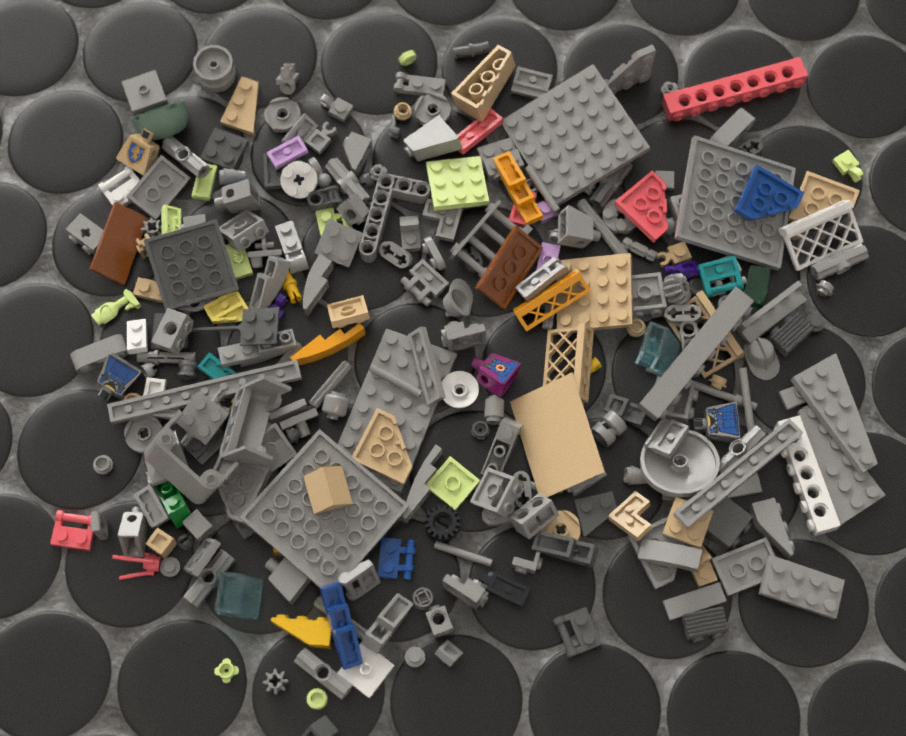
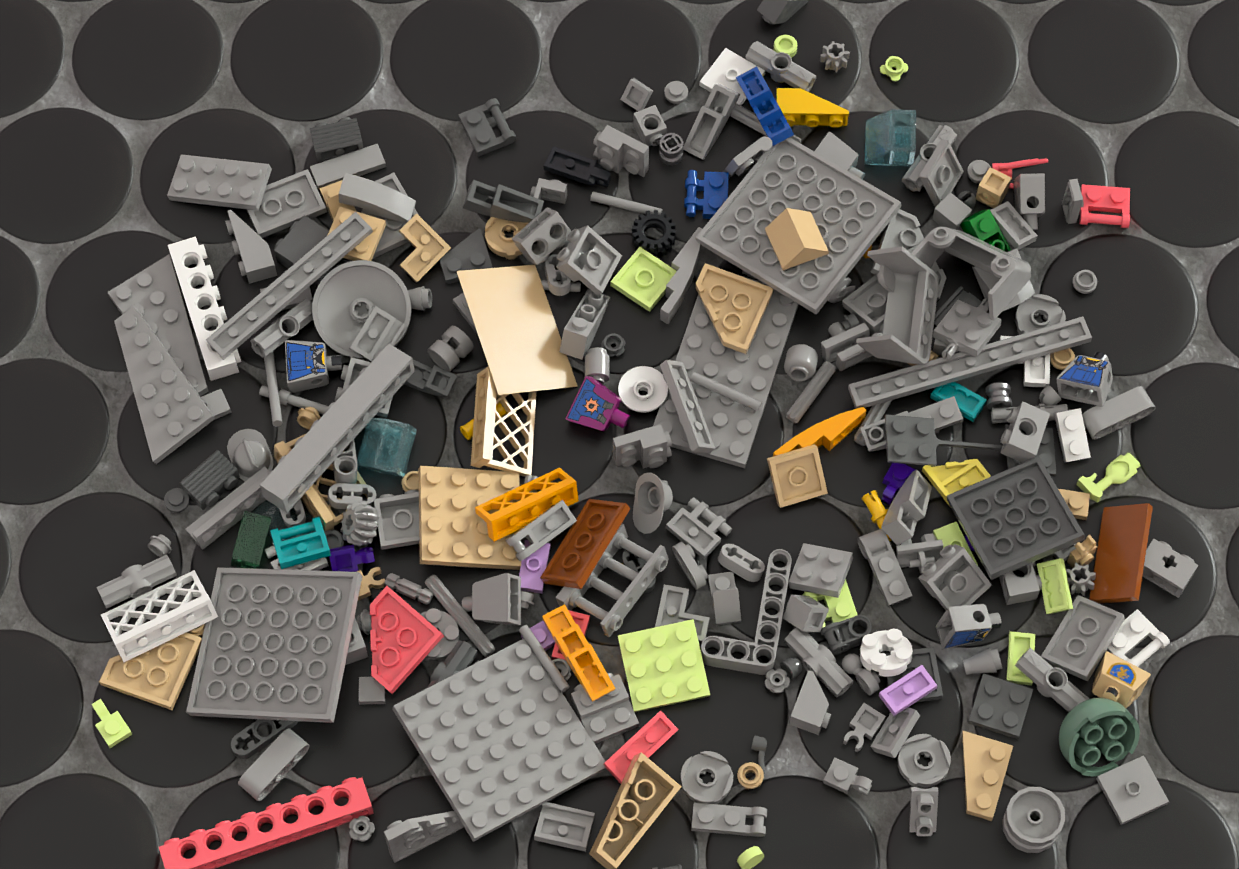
camera: 175 degrees right, 5 degrees down
(316, 283) = (844, 516): light grey slope -> none
(432, 140) = (702, 722): slope -> none
(766, 196) = (232, 651): blue plate -> none

